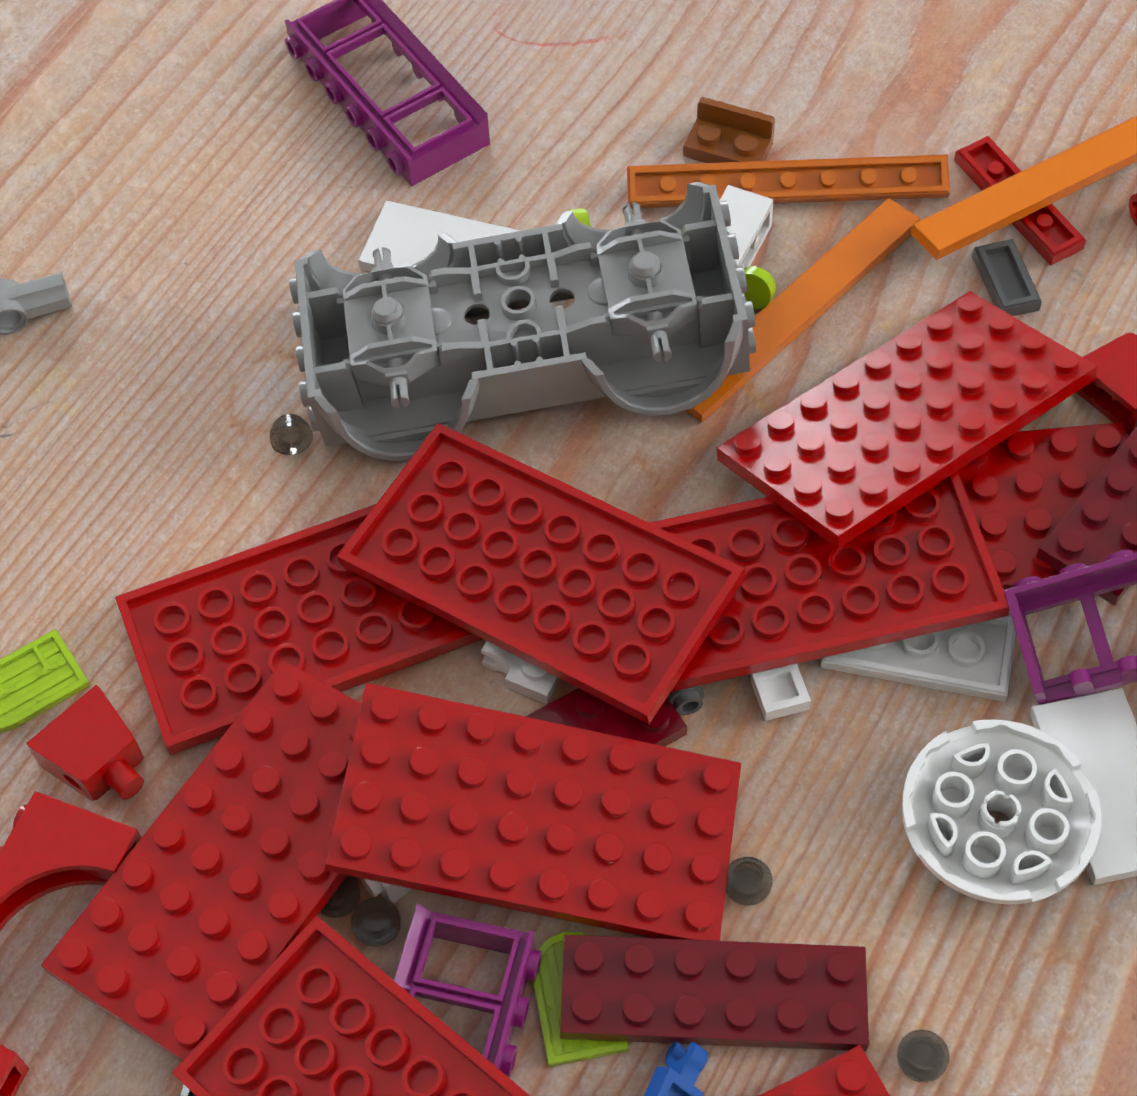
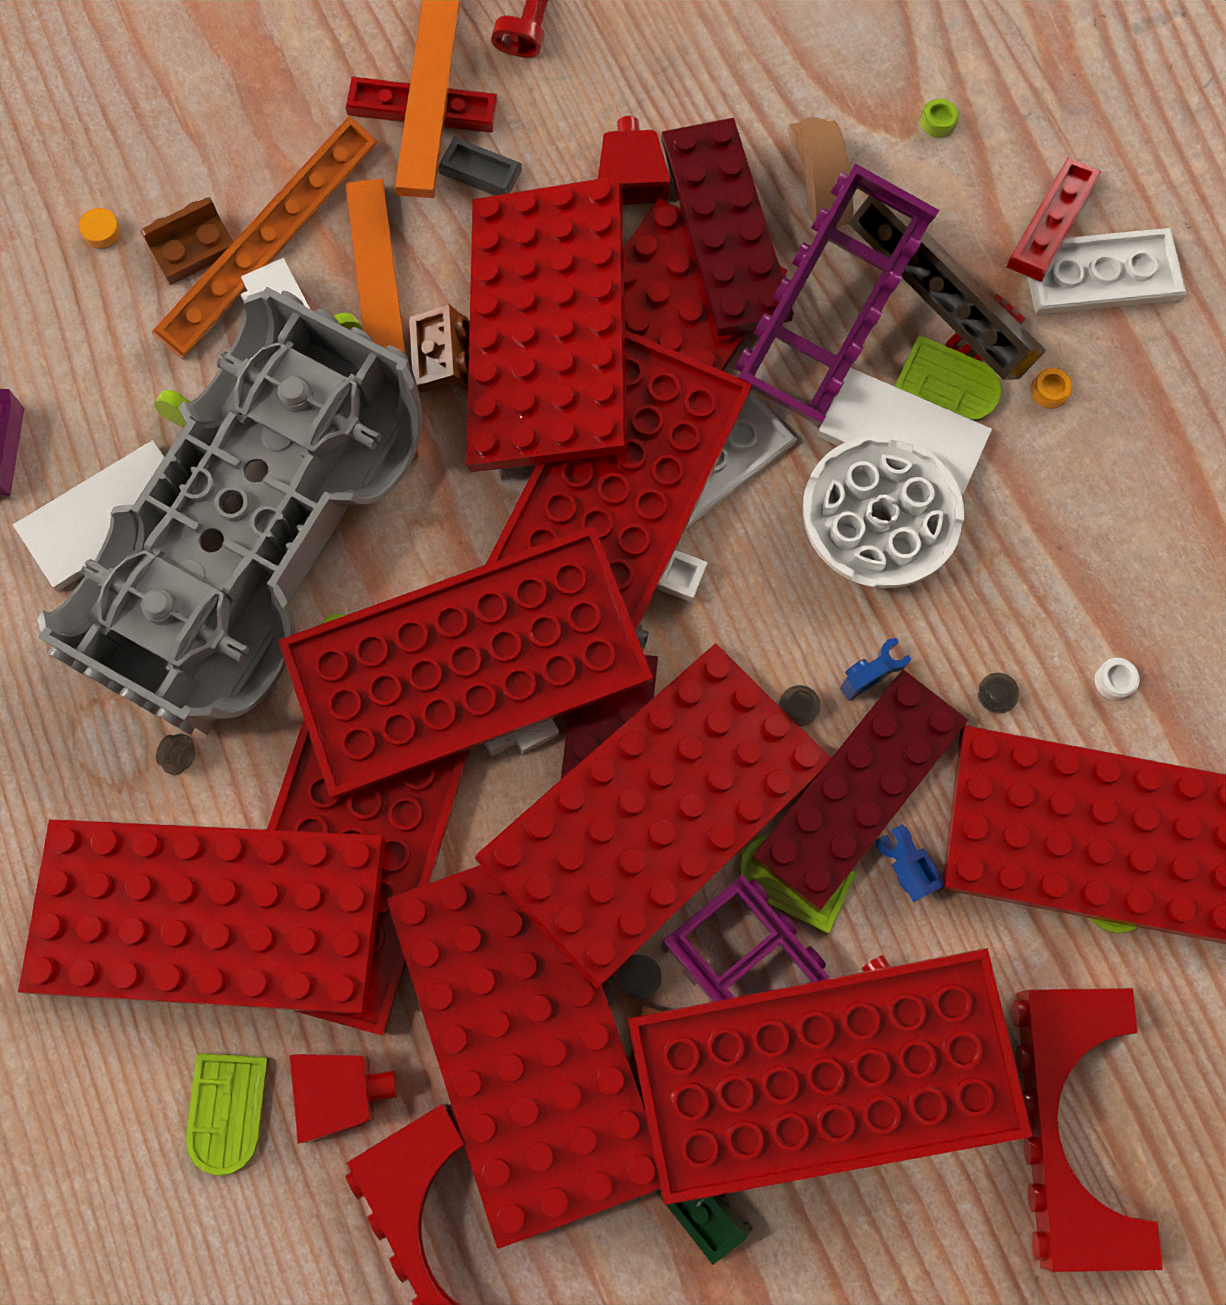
camera: 60 degrees left, 15 degrees up
(174, 552) = (205, 916): none -> red plate
(682, 79) = (99, 228): none -> light orange tile
(808, 360) = (439, 348): none -> dark orange bracket
(830, 918) = (866, 675): none -> blue plate

